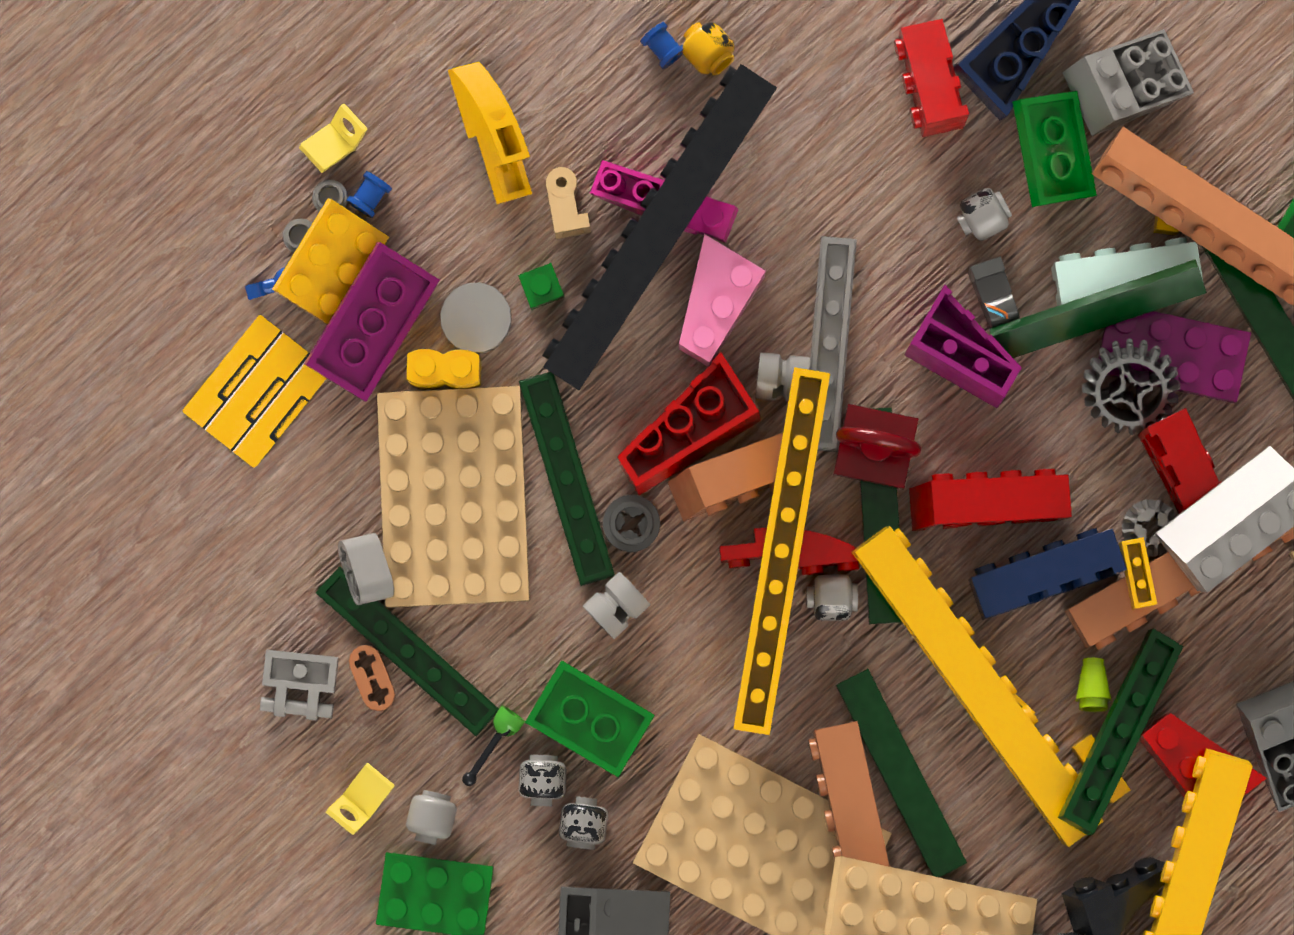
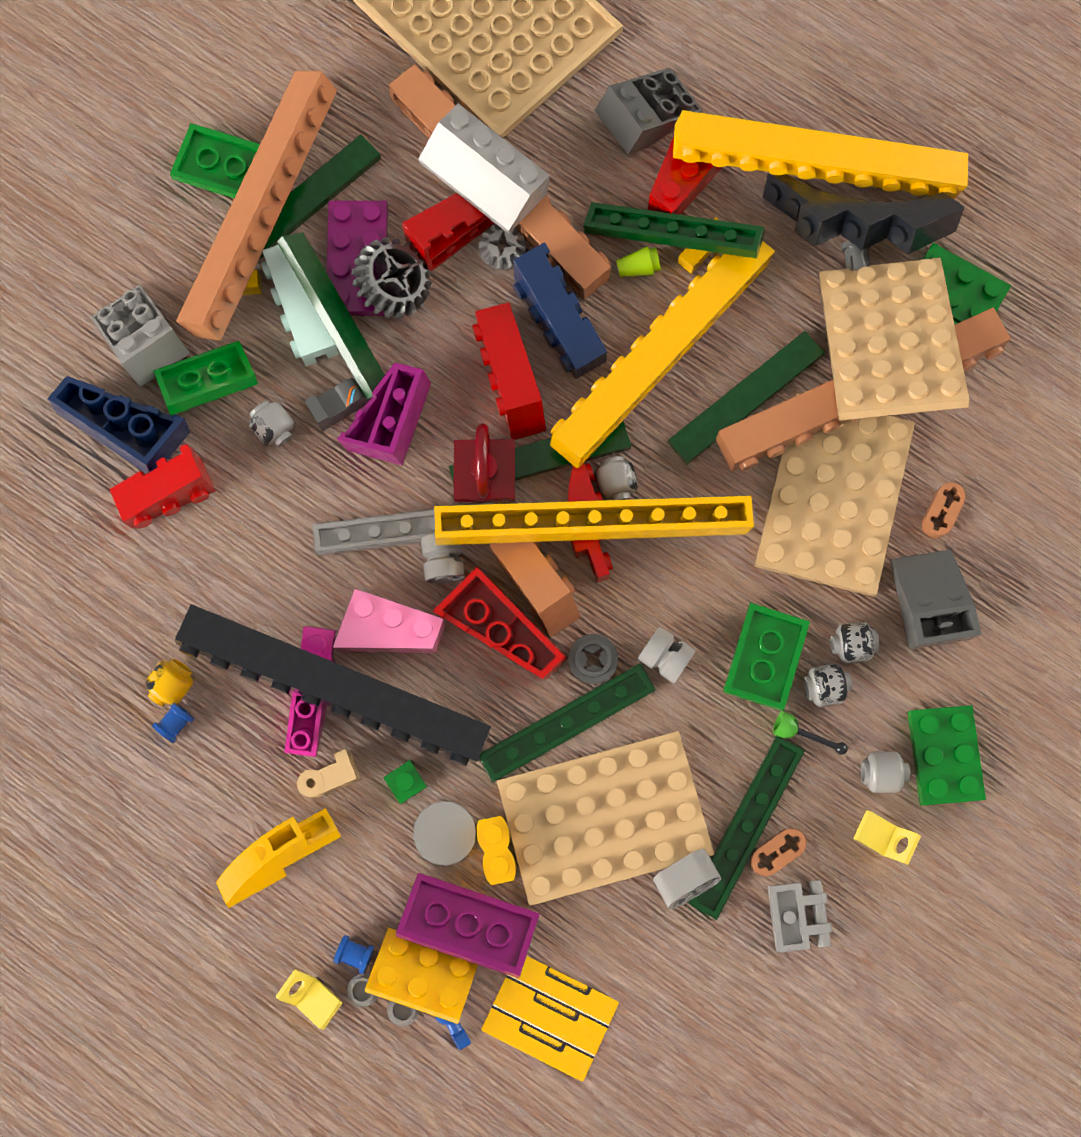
camera: 105 degrees left, 5 degrees down
(1138, 573) = (553, 234): yellow piece -> none

